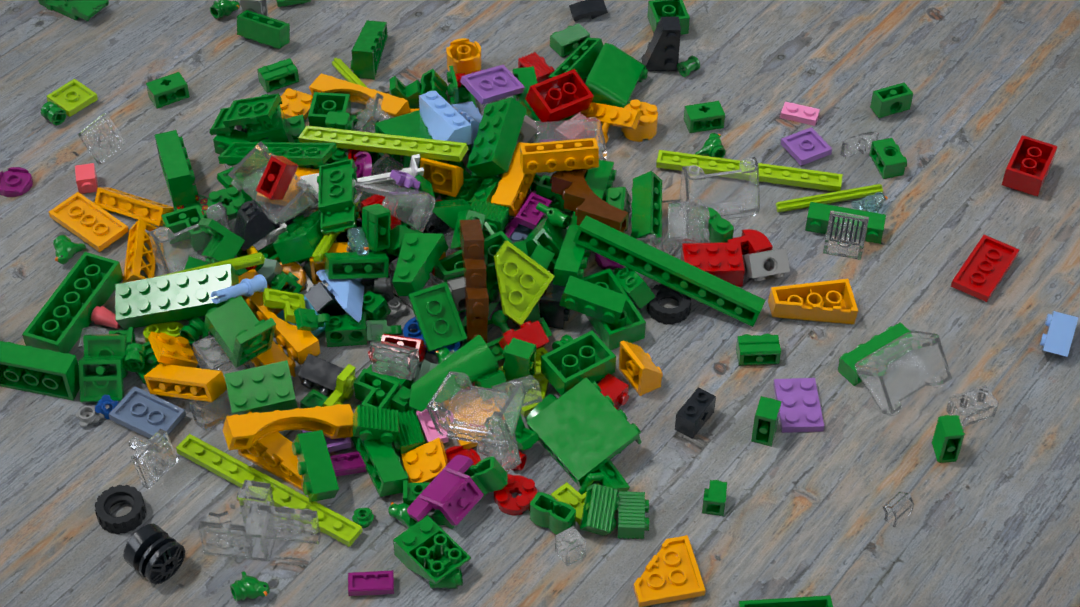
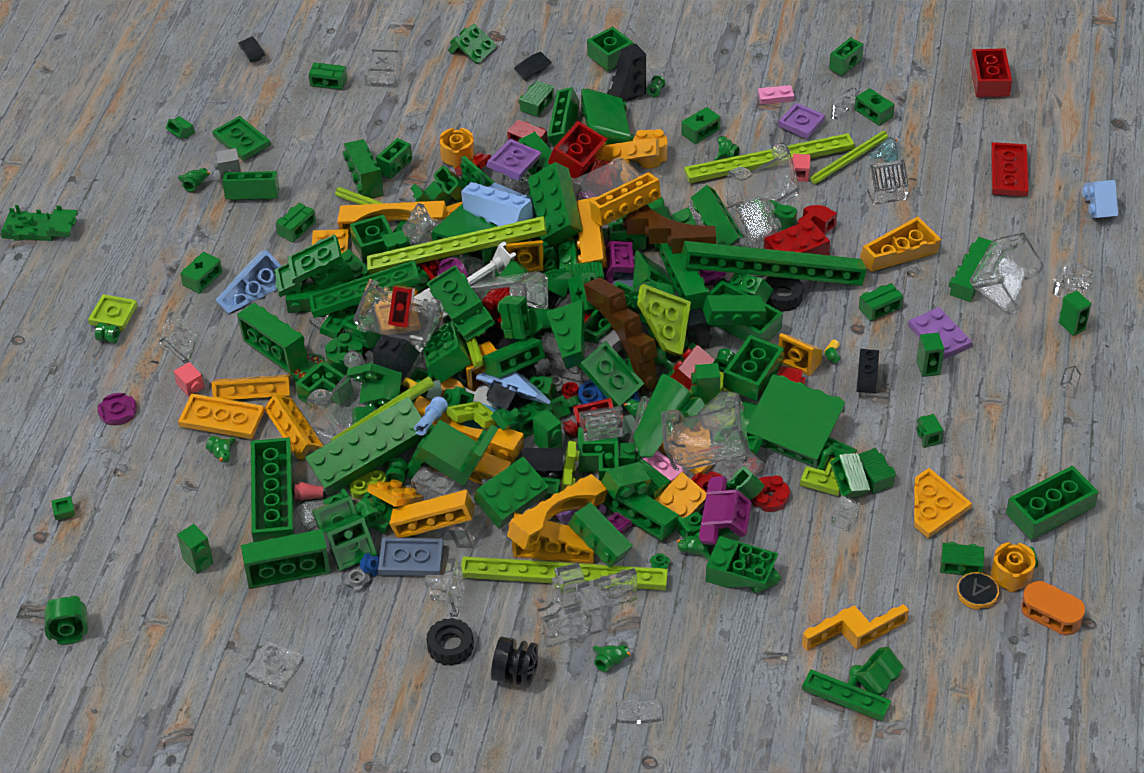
camera: 25 degrees left, 0 degrees up
(197, 115) = (251, 283): none -> light blue wedge
(346, 347) = (547, 430): none -> green brick
(357, 241) = (506, 336): clear light blue animal -> none
(370, 583) = (706, 609): magenta plate -> none
(401, 48) = (394, 158): none -> green brick
(402, 317) = (570, 389): none -> red plate
(405, 179) = (503, 268): medium lavender plate -> none
(551, 513) = (815, 495): green brick -> none
(555, 216) = (649, 252): green piece -> none
(675, 378) = (831, 353): none -> green arm
(772, 190) = (802, 166): none -> coral brick
(778, 264) = (847, 223): light grey brick -> none
(819, 216) = (855, 175): green brick -> none

